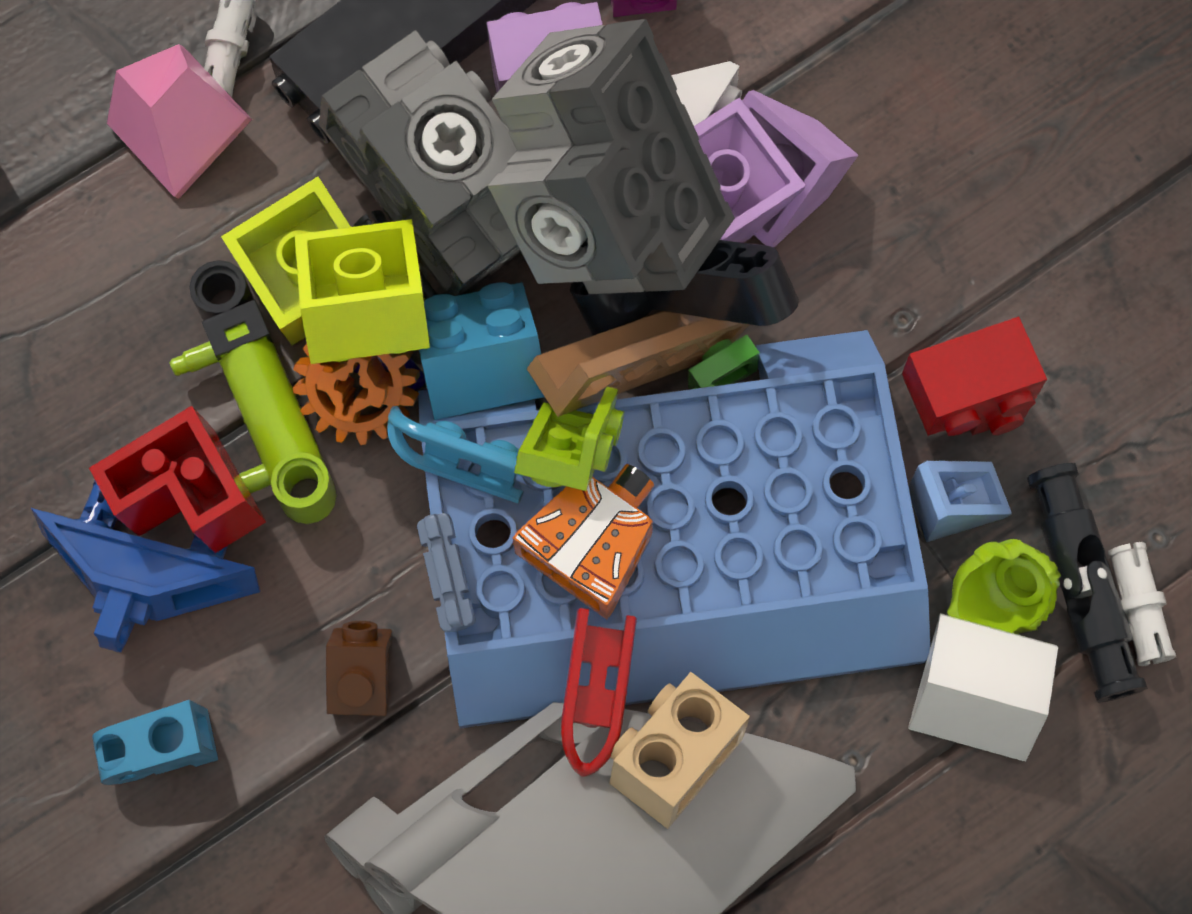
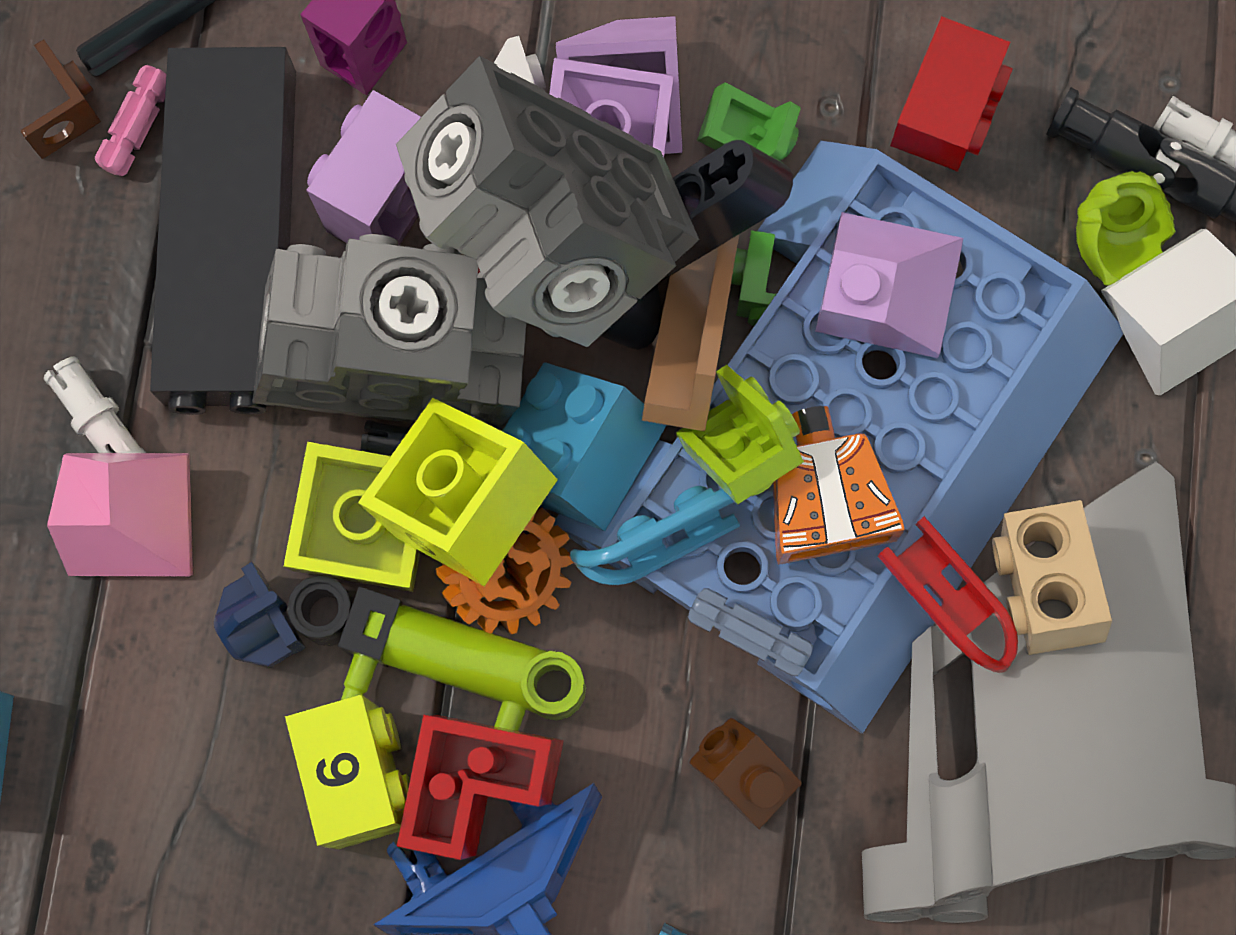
camera: 45 degrees left, 5 degrees up
(117, 395) = (349, 771): none -> neon yellow brick
(172, 258) = (255, 621): none -> dark blue piece
(787, 450) = (889, 285): none -> lavender slope
(827, 273) = (743, 117): none -> bright green bracket
(956, 497) = (1018, 193): light blue slope -> none

